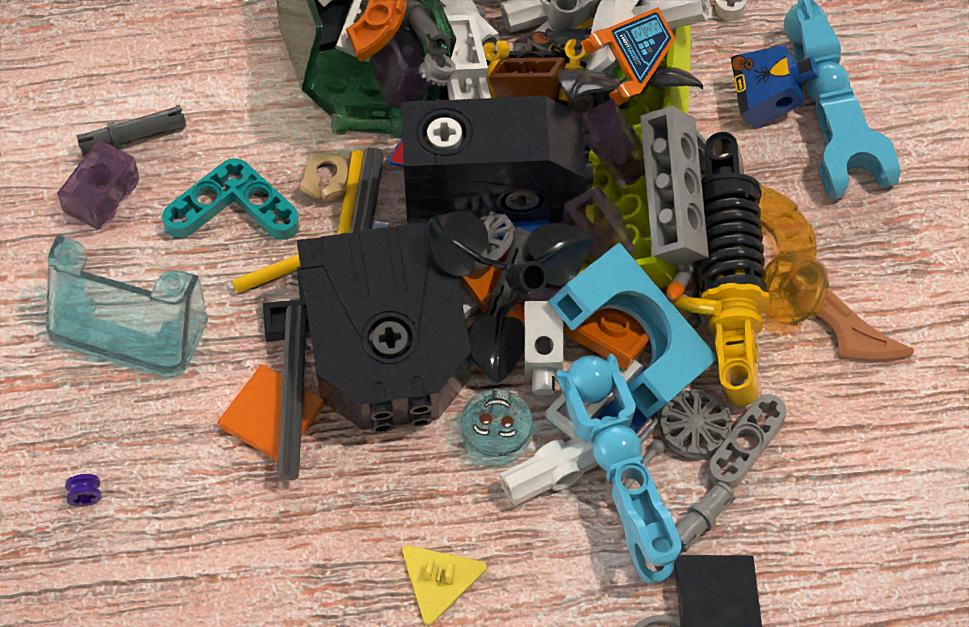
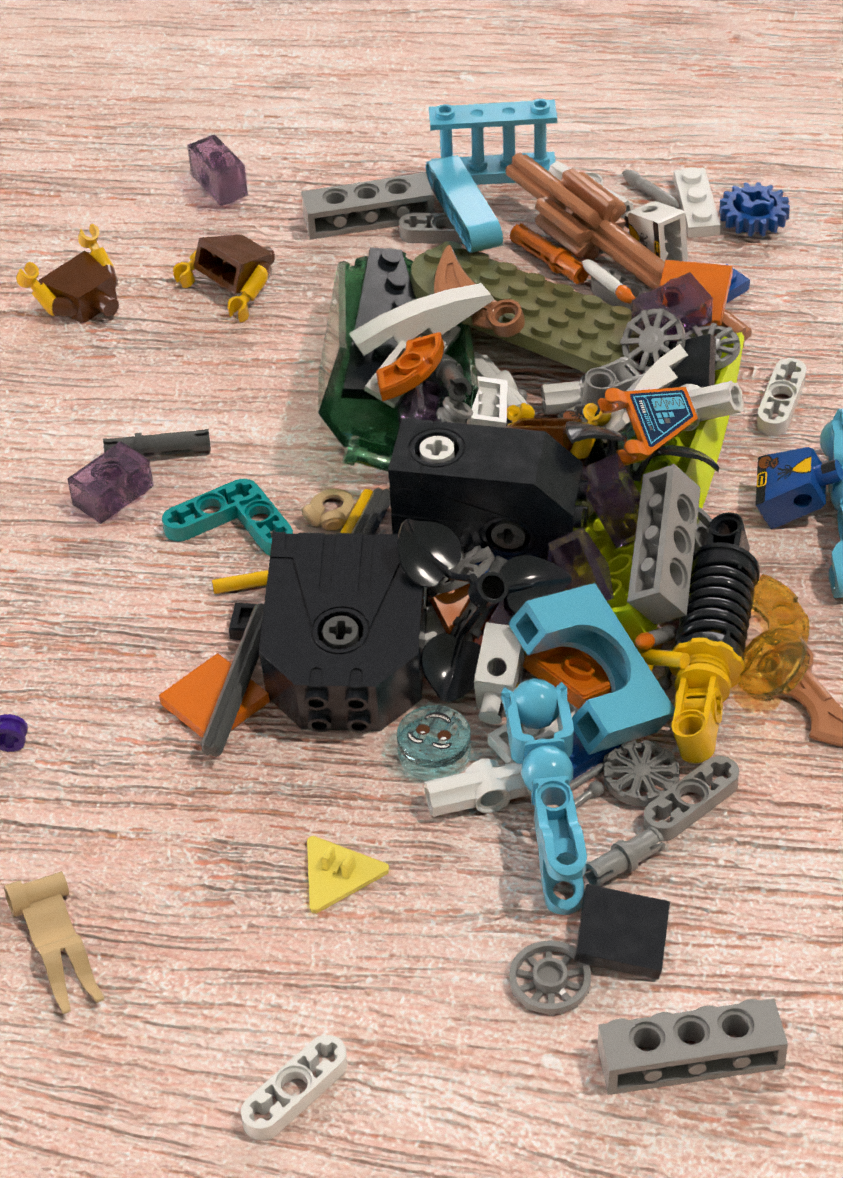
camera: 15 degrees right, 15 degrees down
(121, 321) = (95, 592): clear light blue windscreen -> none

